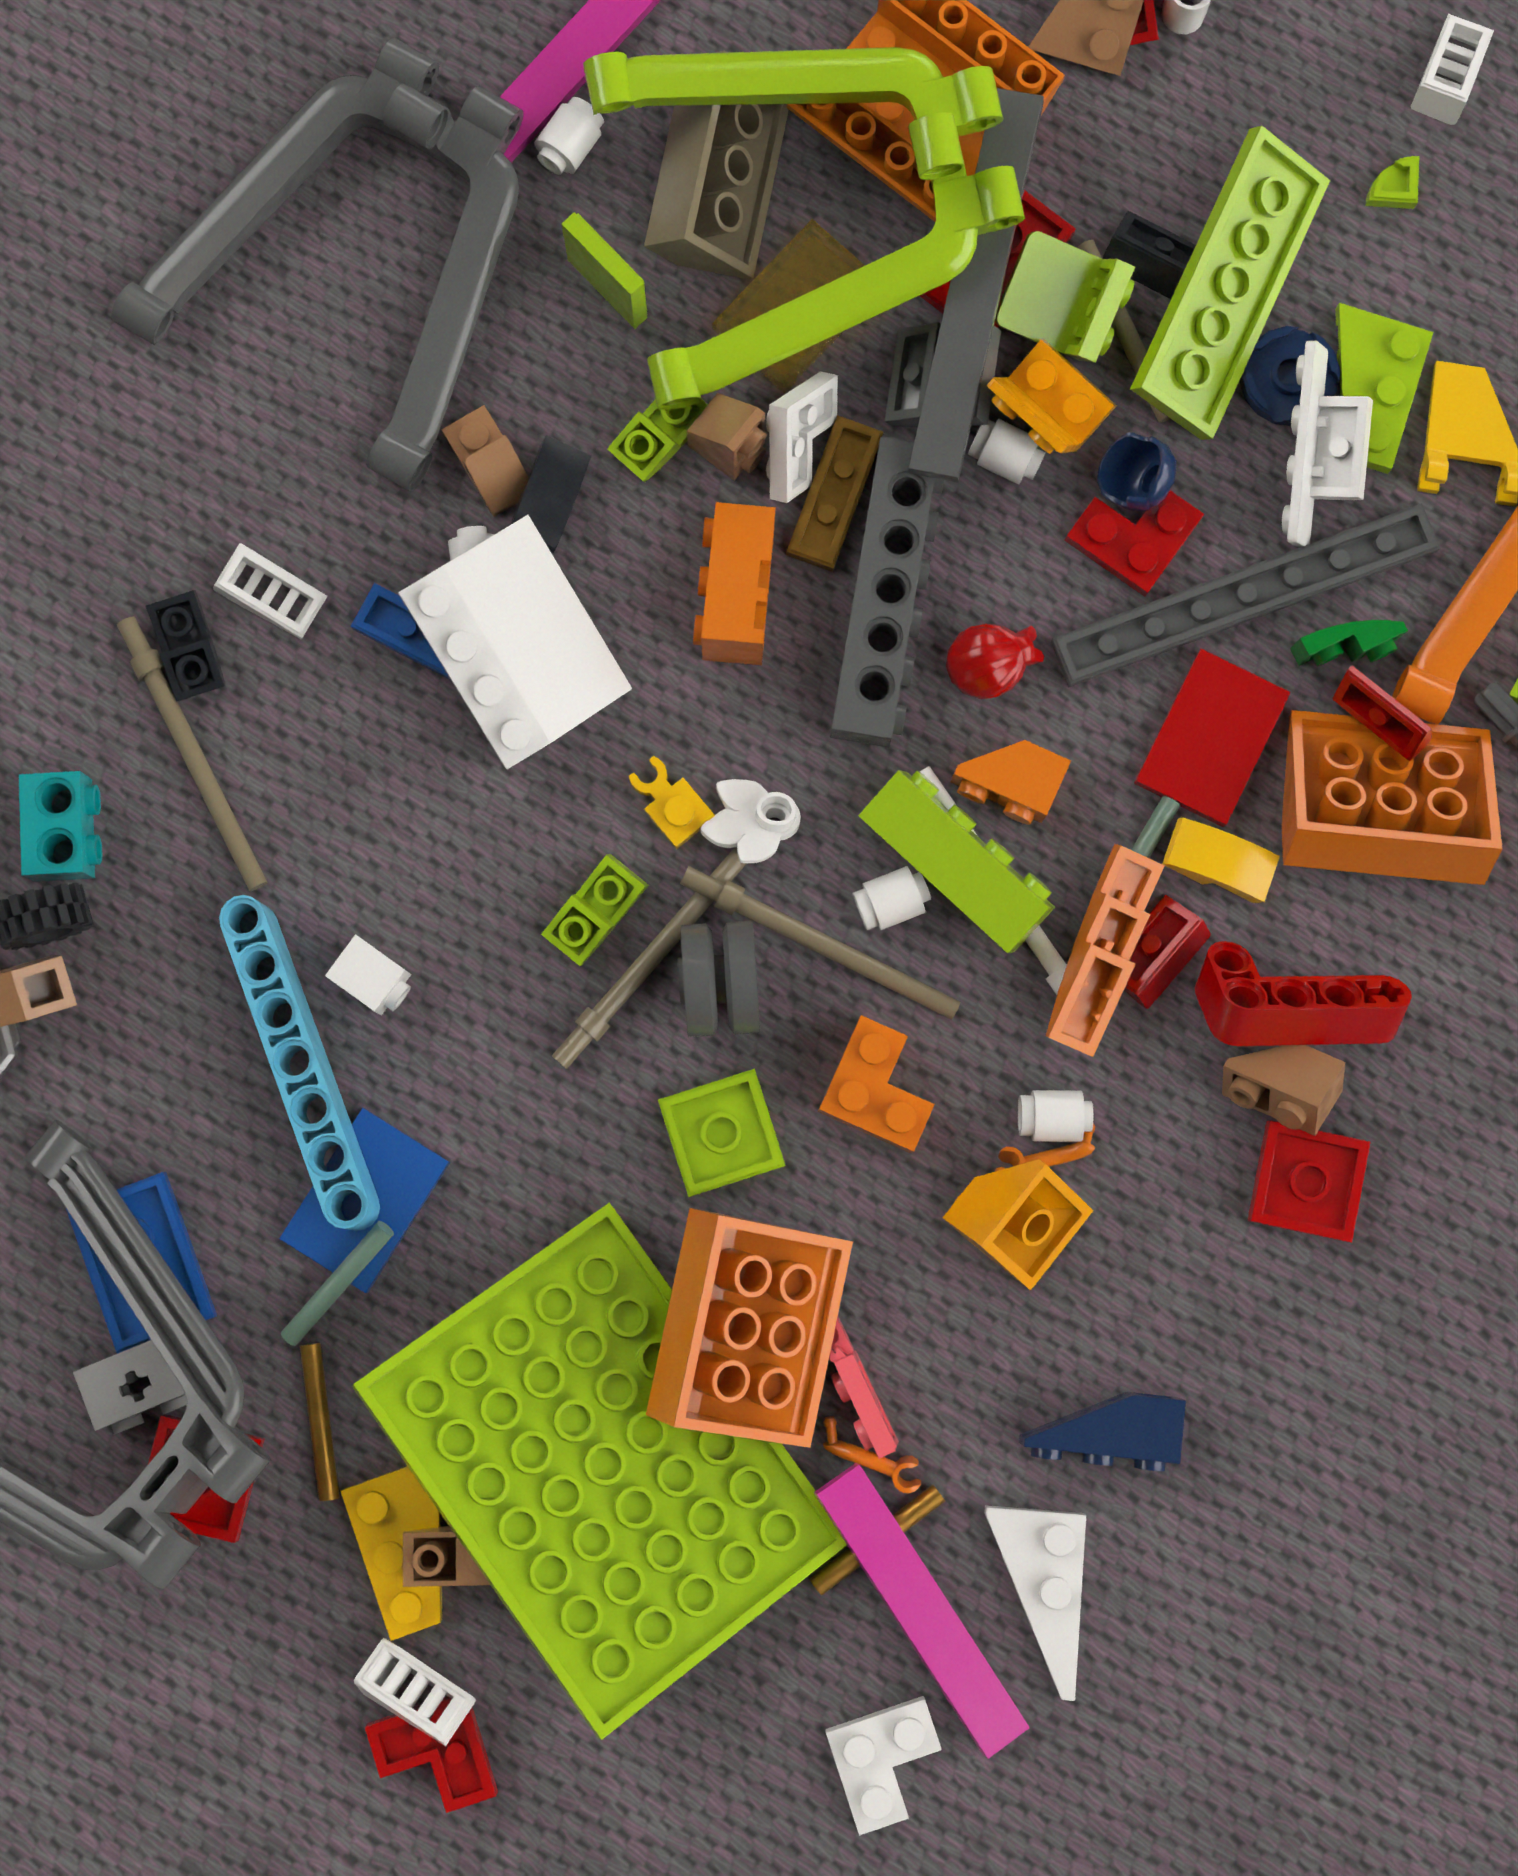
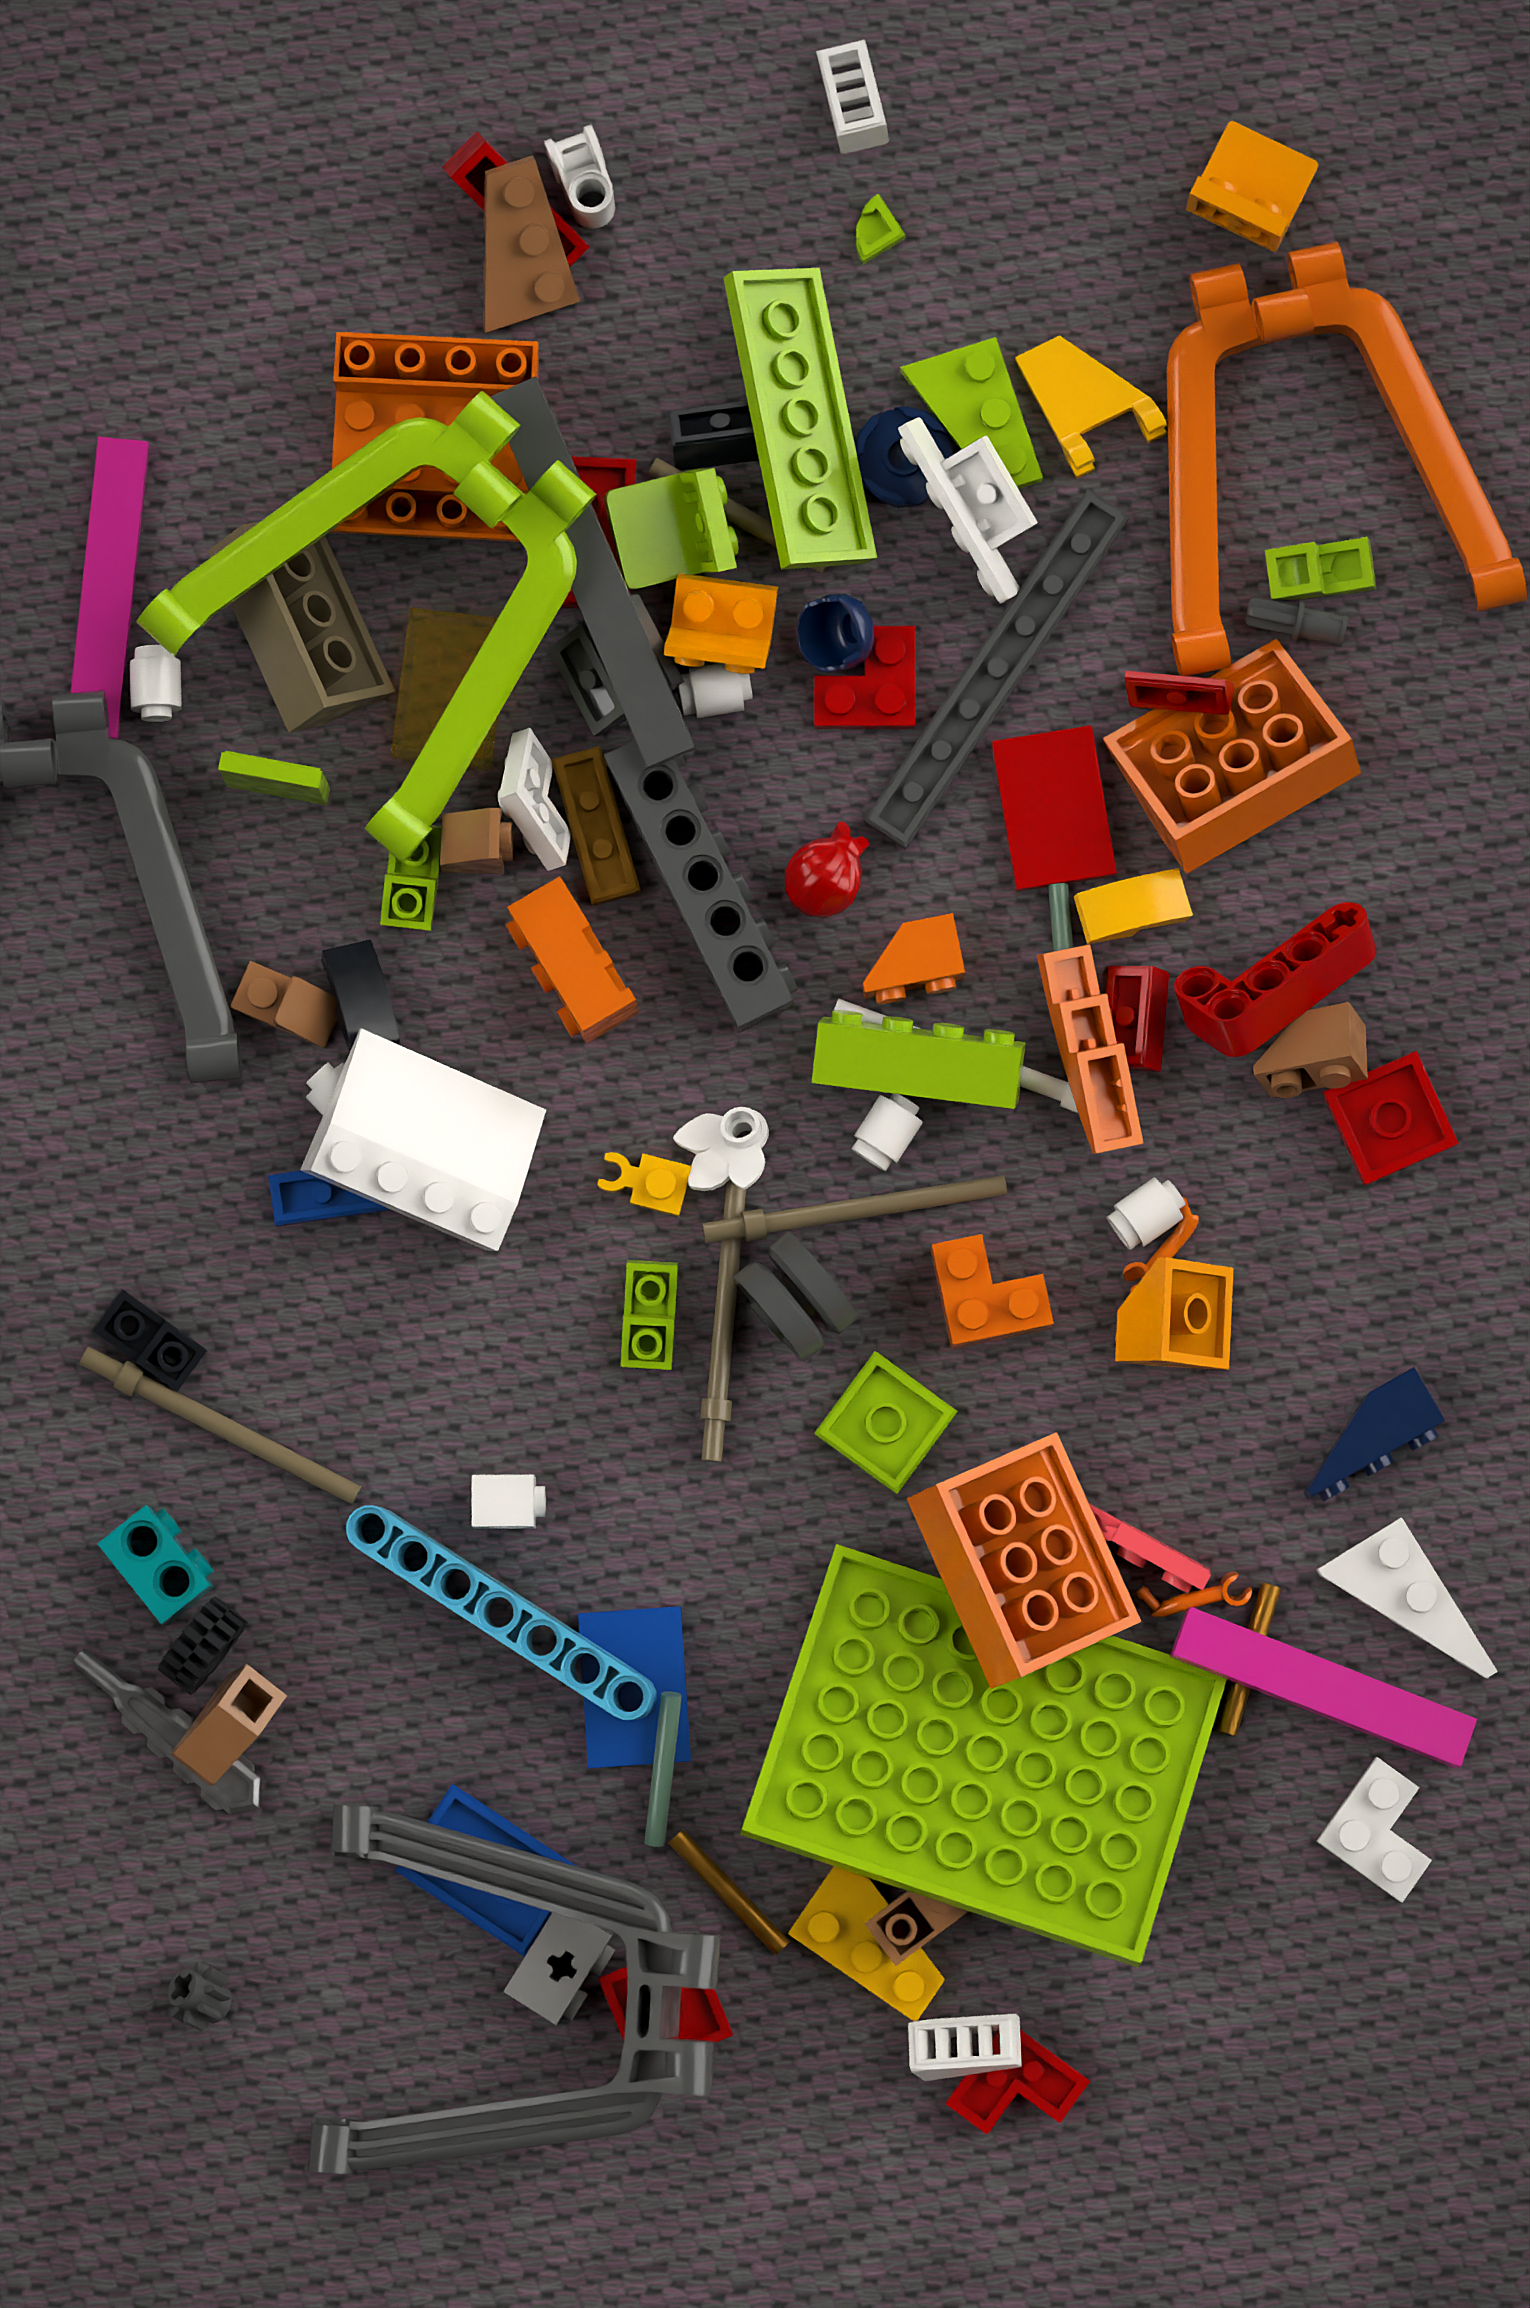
camera: 30 degrees left, 0 degrees up
(245, 556) = (166, 1265): white slope -> none
(1360, 639) = (1121, 637): green slope -> none

